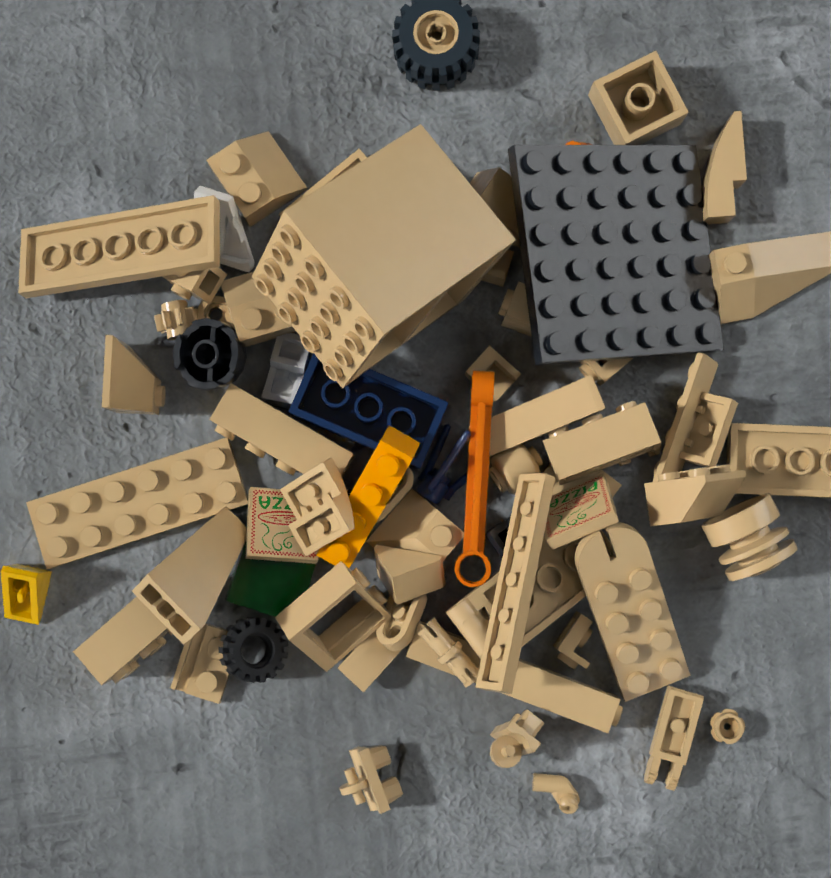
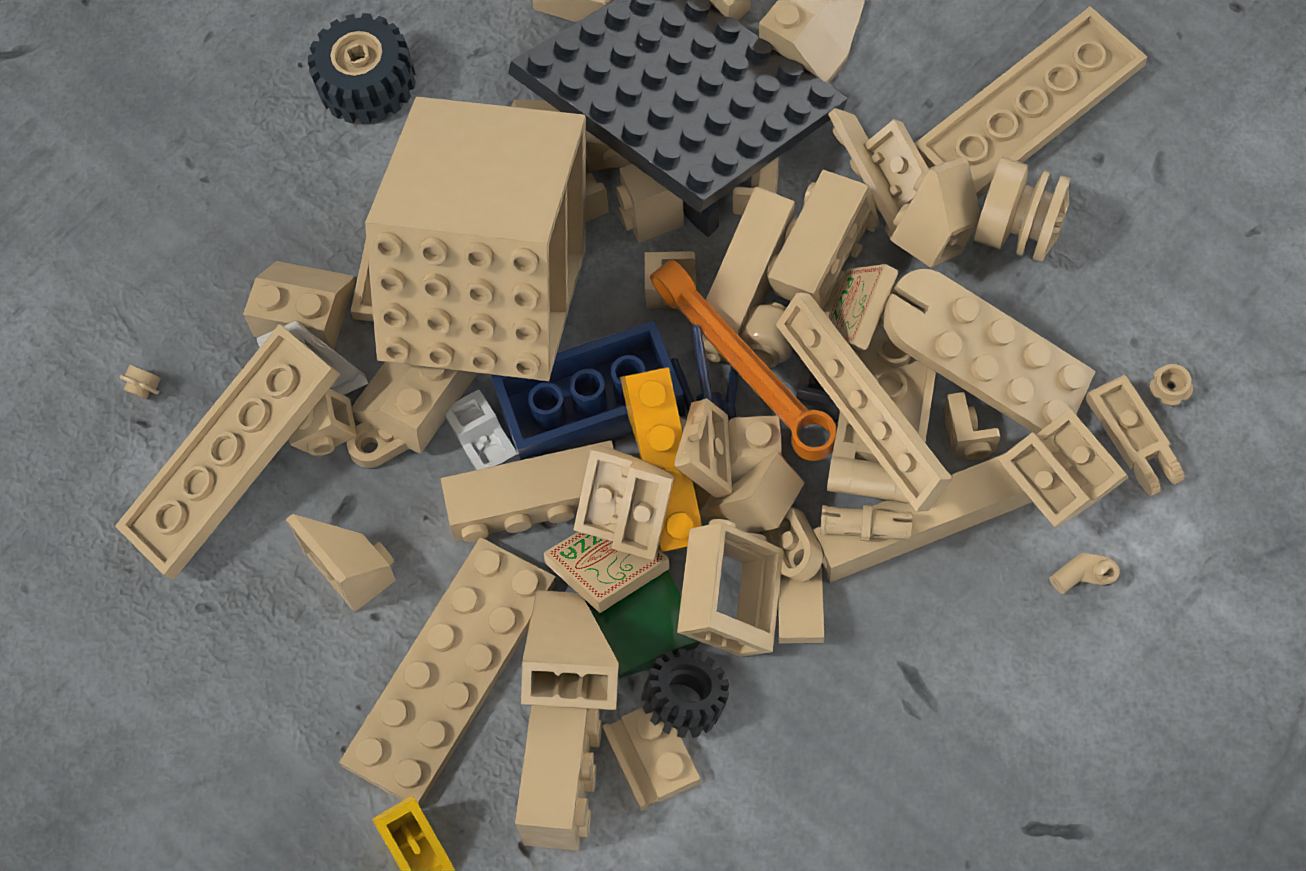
camera: 35 degrees left, 20 degrees down
(115, 142) = (140, 382): none -> tan plate
(175, 318) = (338, 475): tan gear -> none
(209, 354) = (397, 468): black cylinder -> none
(377, 793) = (908, 715): tan hips -> none
(398, 518) = (706, 448): none -> tan wing
(515, 739) = (1000, 547): tan hips -> none
(599, 728) = (1063, 468): none -> tan slope

